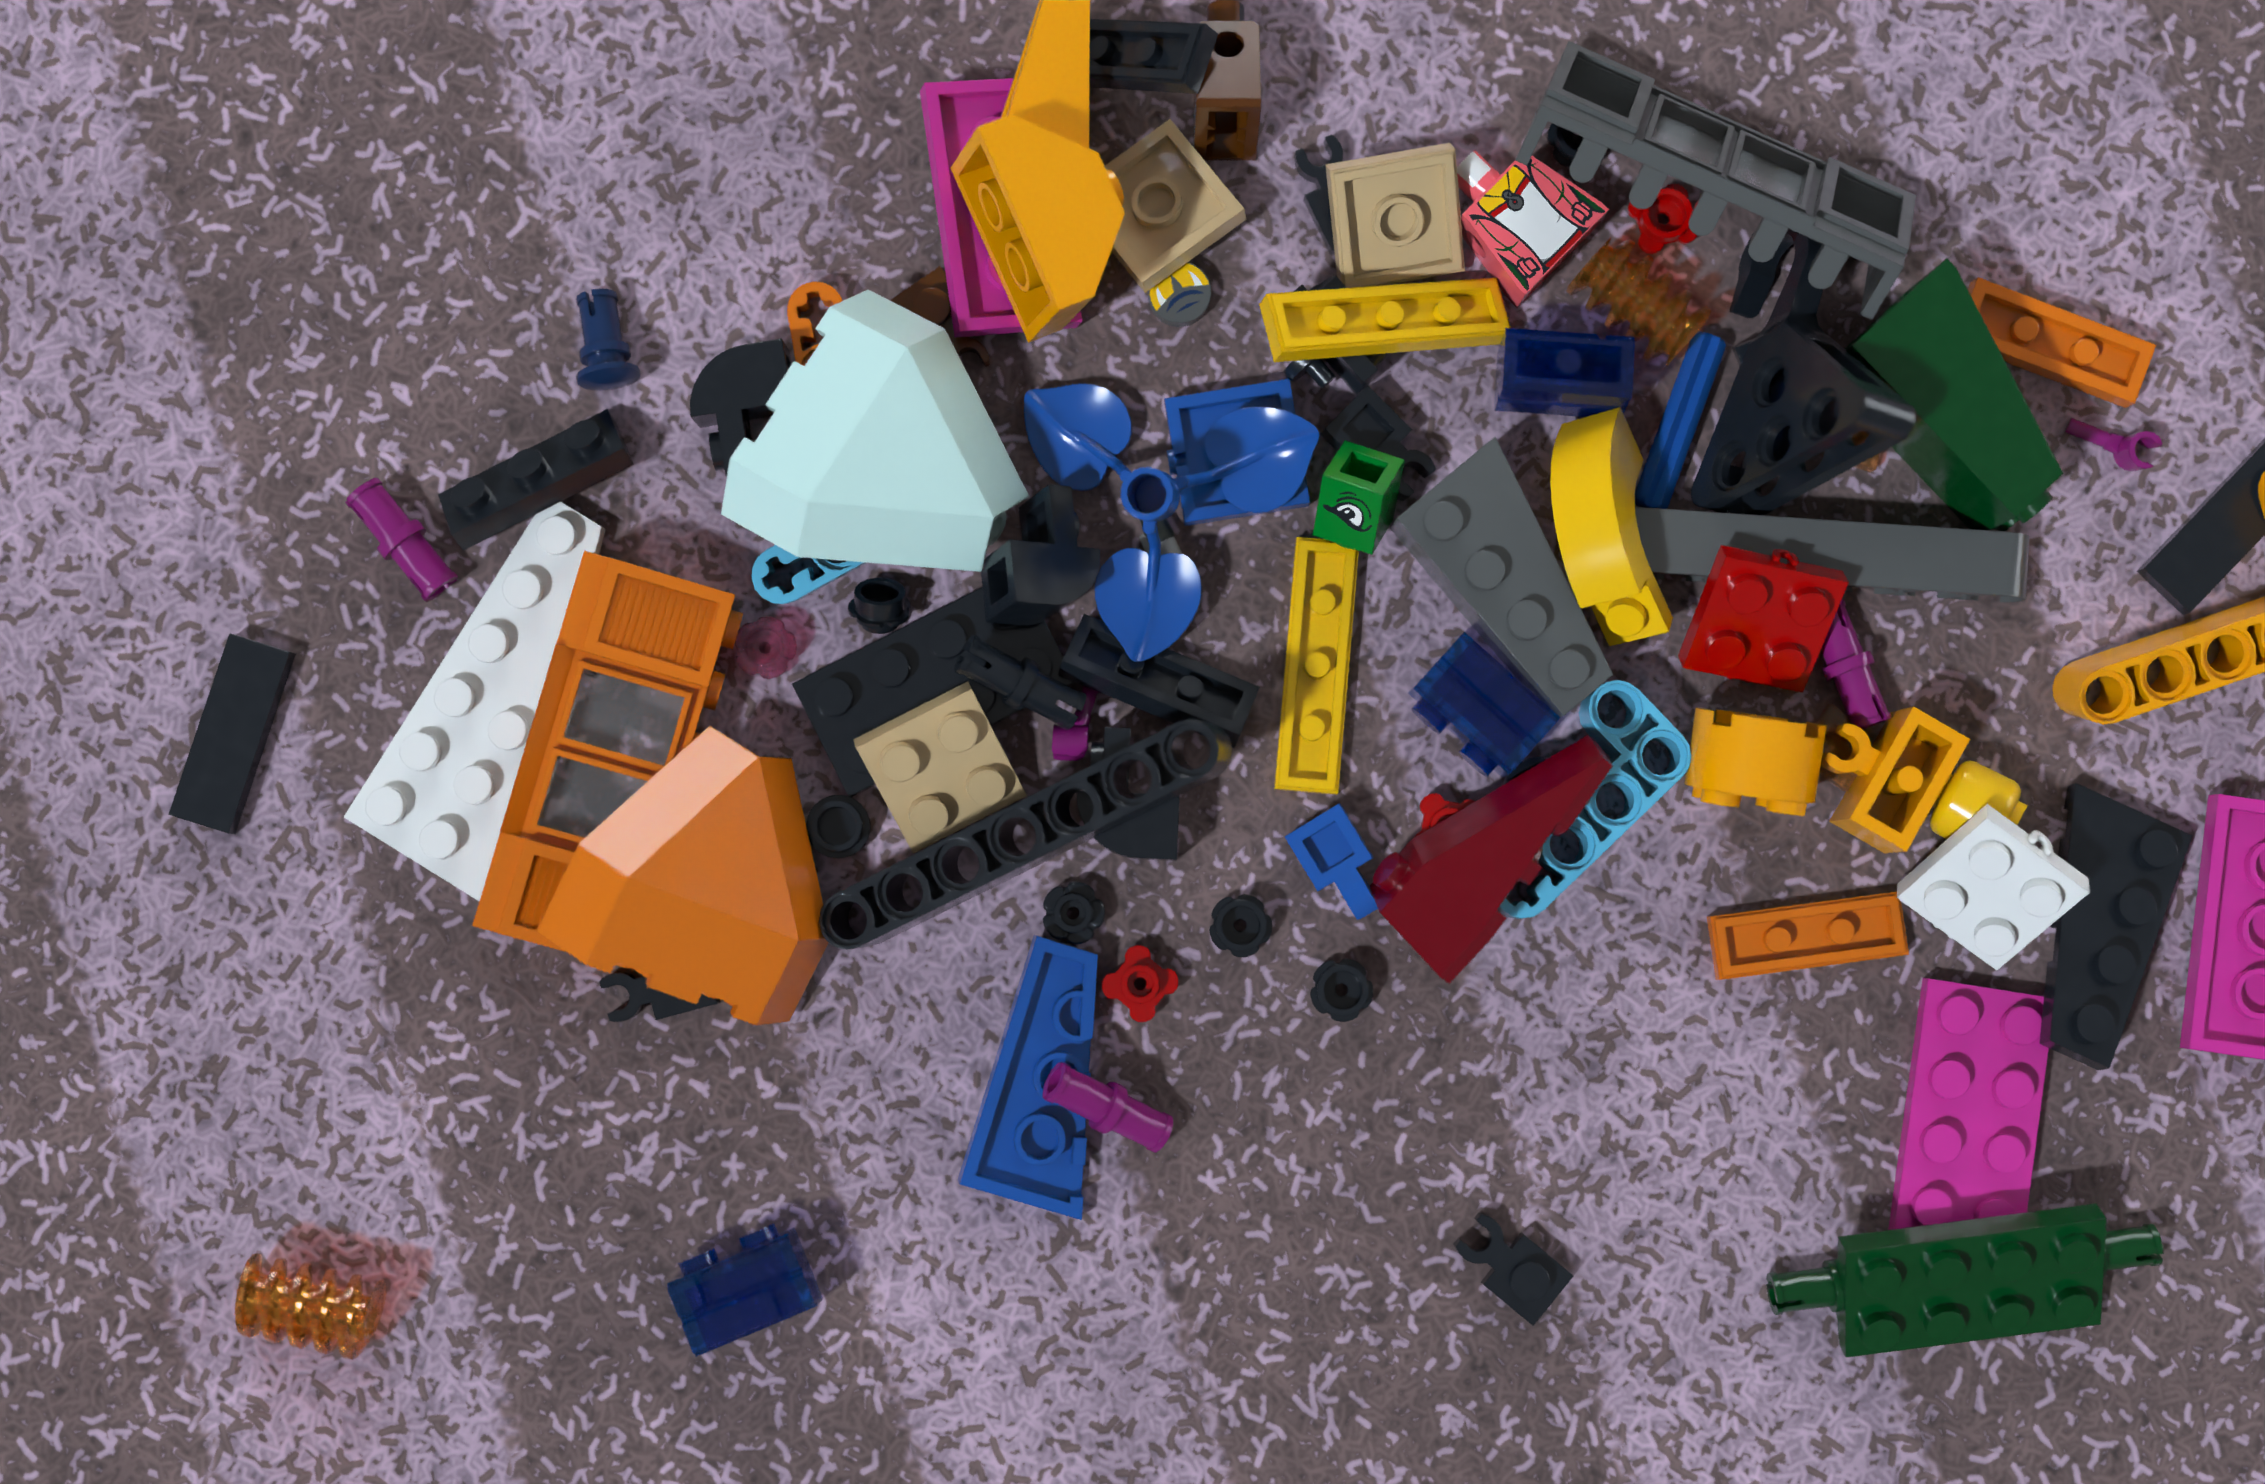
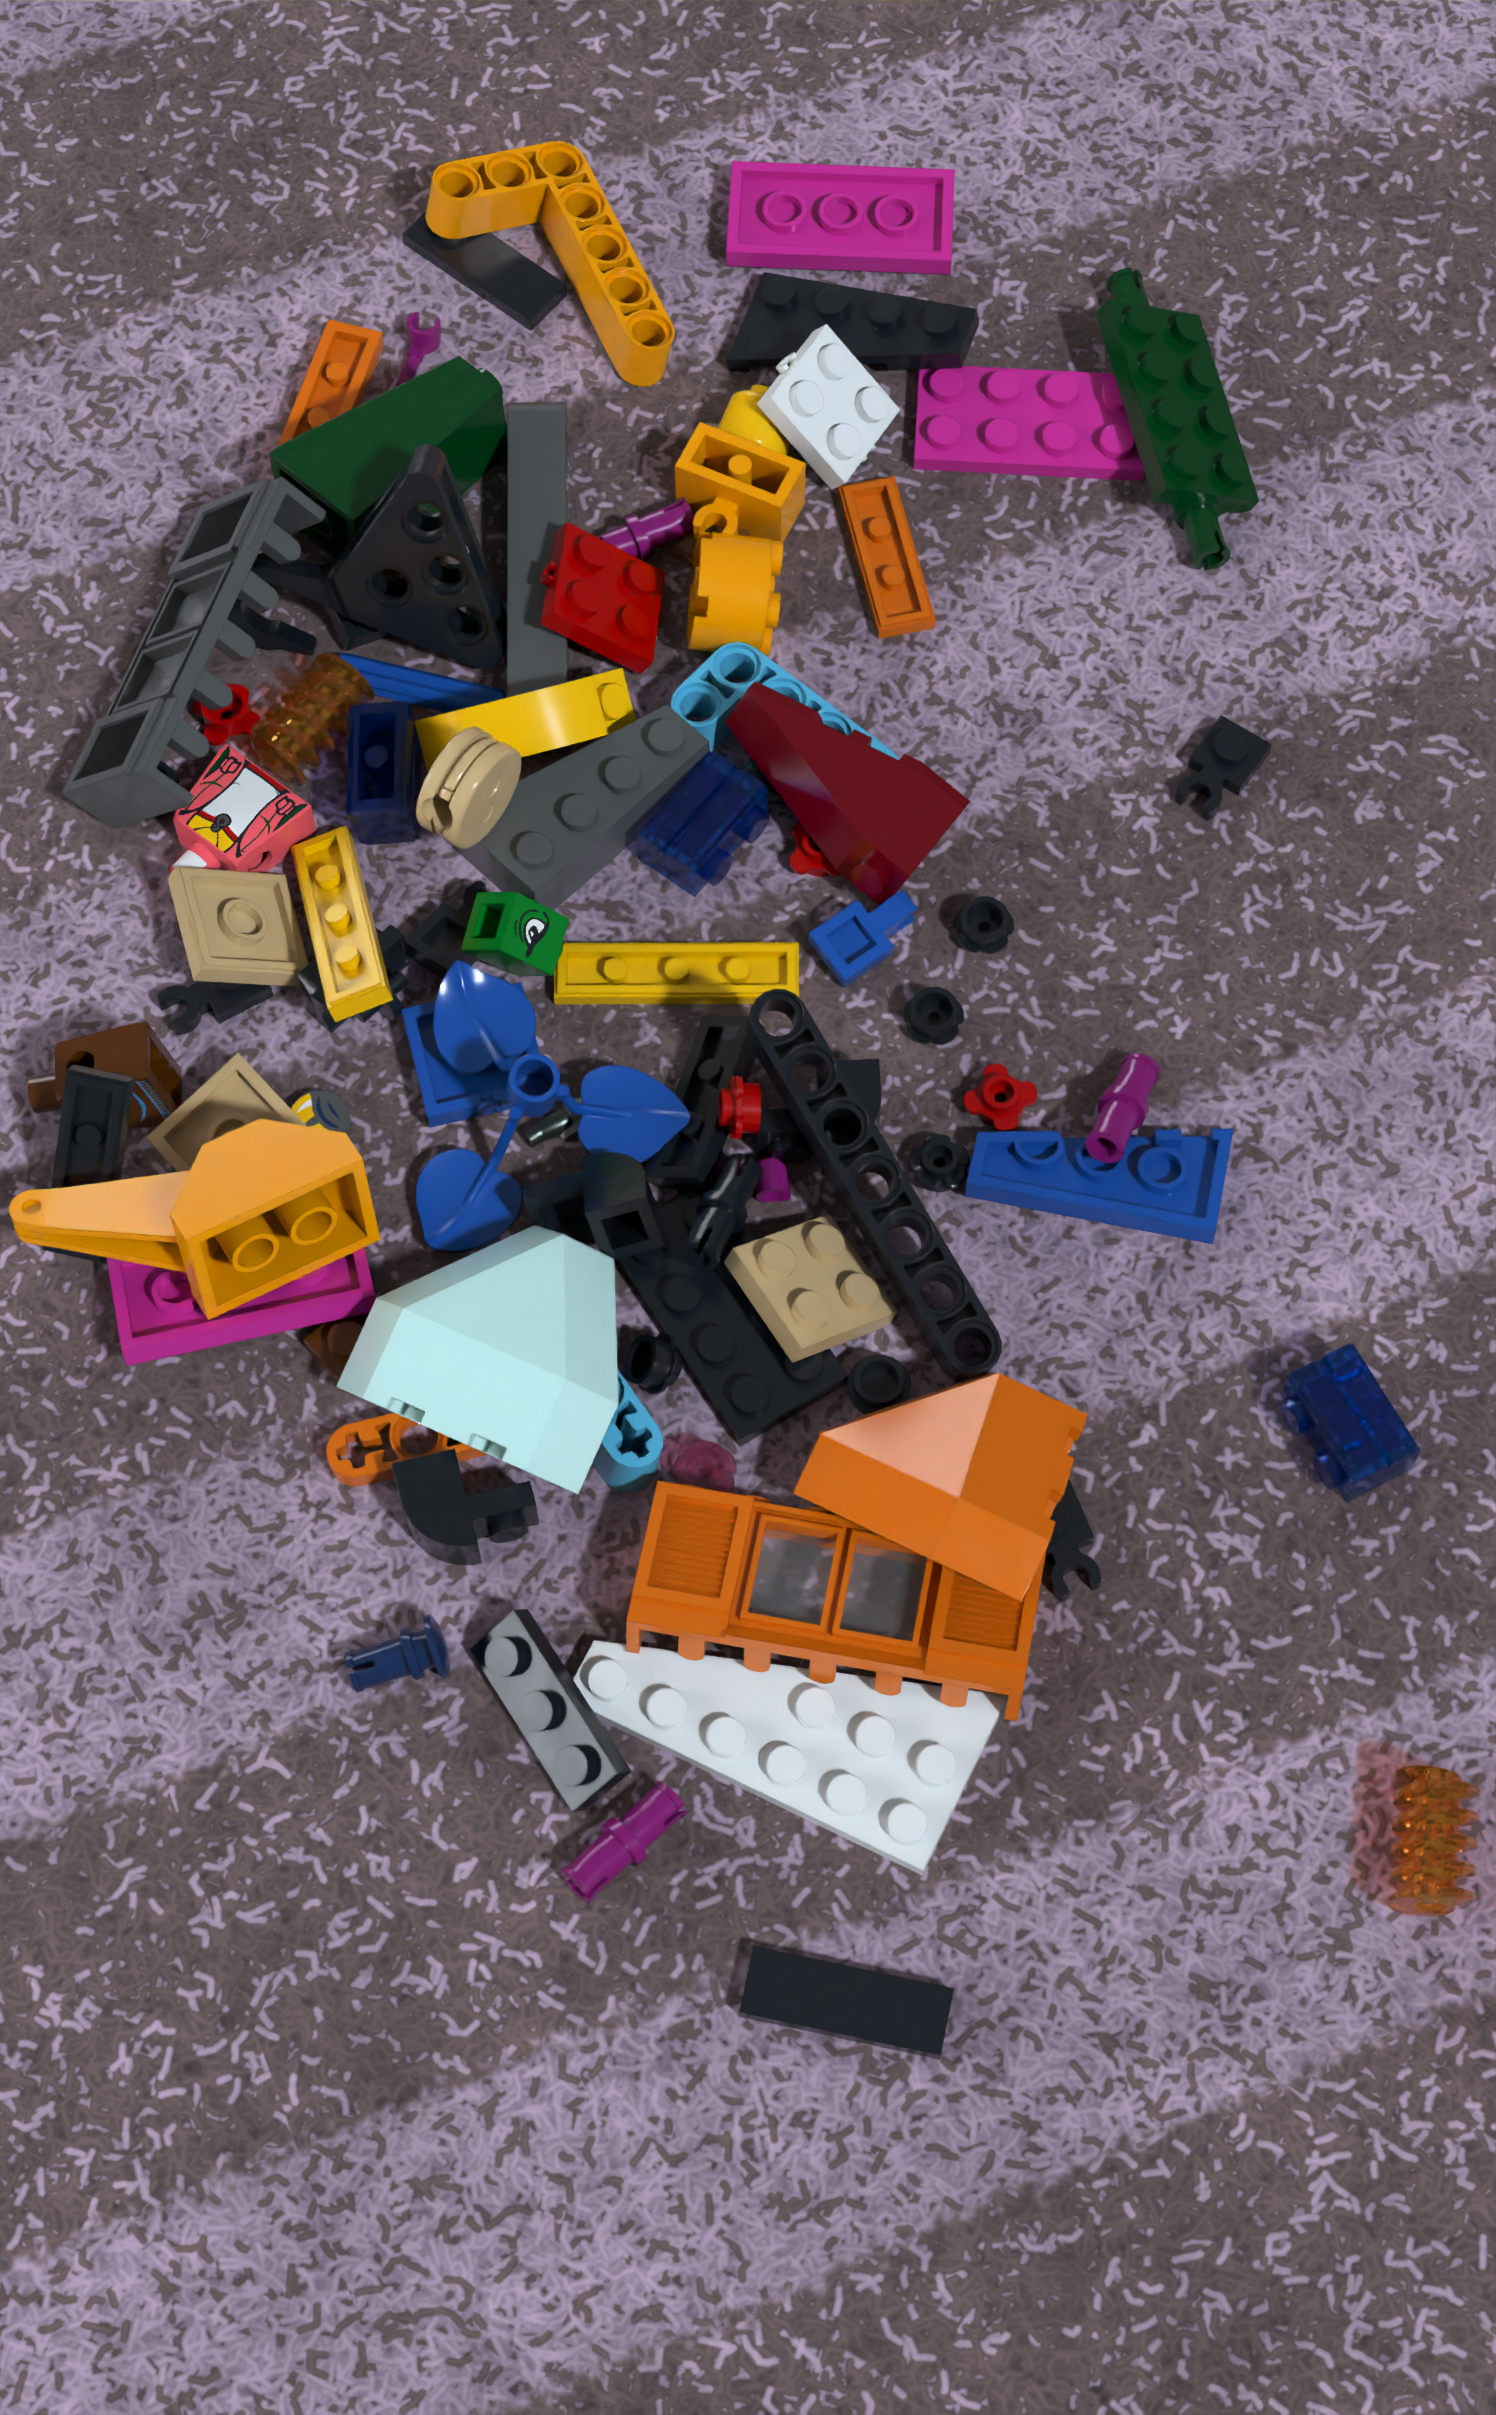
camera: 95 degrees left, 20 degrees down
(1128, 710) = (740, 1107): none -> red plate
(1502, 448) = (468, 787): none -> tan head

